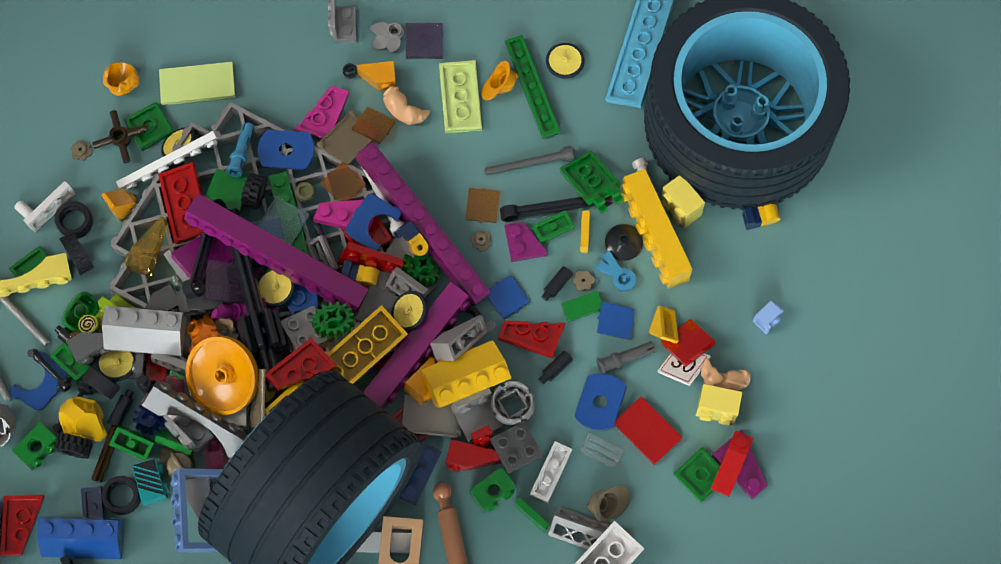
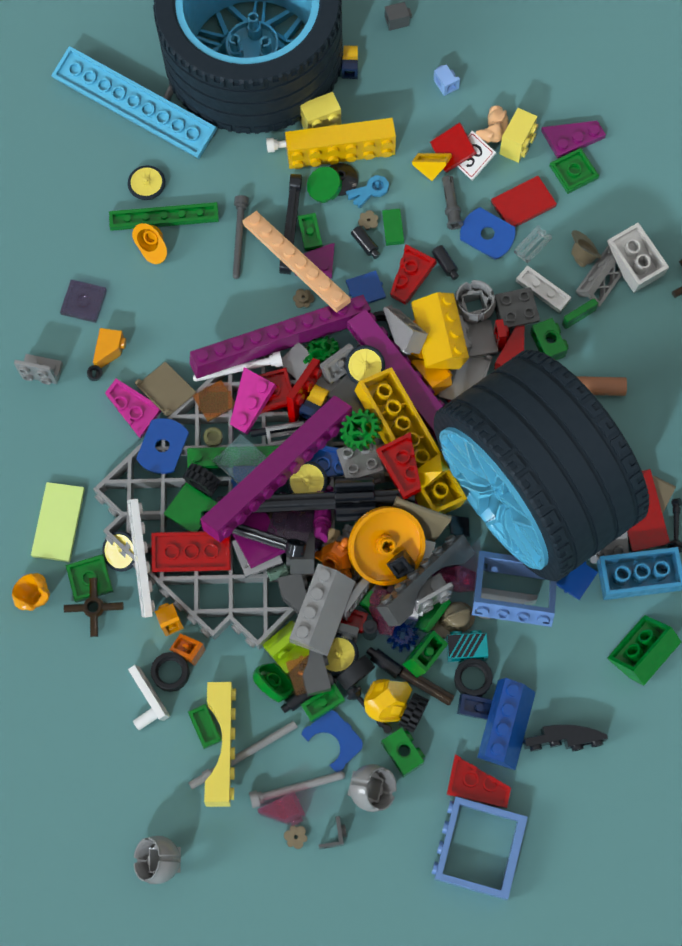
camera: 75 degrees left, 0 degrees up
(63, 384) = (343, 714): black piece -> none
(76, 253) = (211, 670): black tyre -> none
(85, 152) = (97, 656): dark tan plant -> none
(88, 324) = (292, 672): tile -> none
(97, 230) = (188, 648): none -> orange slope
(146, 250) = (235, 600): clear yellow slope -> none
(209, 395) = (401, 564): none -> black slope
(239, 157) = (159, 487): dark azure pin -> none
(369, 208) = (254, 374): blue piece -> none
(373, 125) = (157, 365): clear orange piece -> none
(385, 38) = (67, 335): light grey plate -> none
(397, 105) = (144, 336): light nougat animal -> none
(415, 240) = (294, 344): leg -> none
(460, 96) = (152, 282): yellowish green tile -> none
(482, 205) = (268, 288): clear orange piece -> none
(509, 219) = (296, 261): none -> light nougat plate
(584, 231) = (323, 205): yellow tile -> none
(592, 180) = (277, 184): green tile -> none
(608, 226) = (324, 184): none -> green tile
(615, 320) = (414, 202): blue piece -> none
(732, 463) = (574, 137): red slope -> none
(830, 249) = (397, 16): none -> dark grey brick

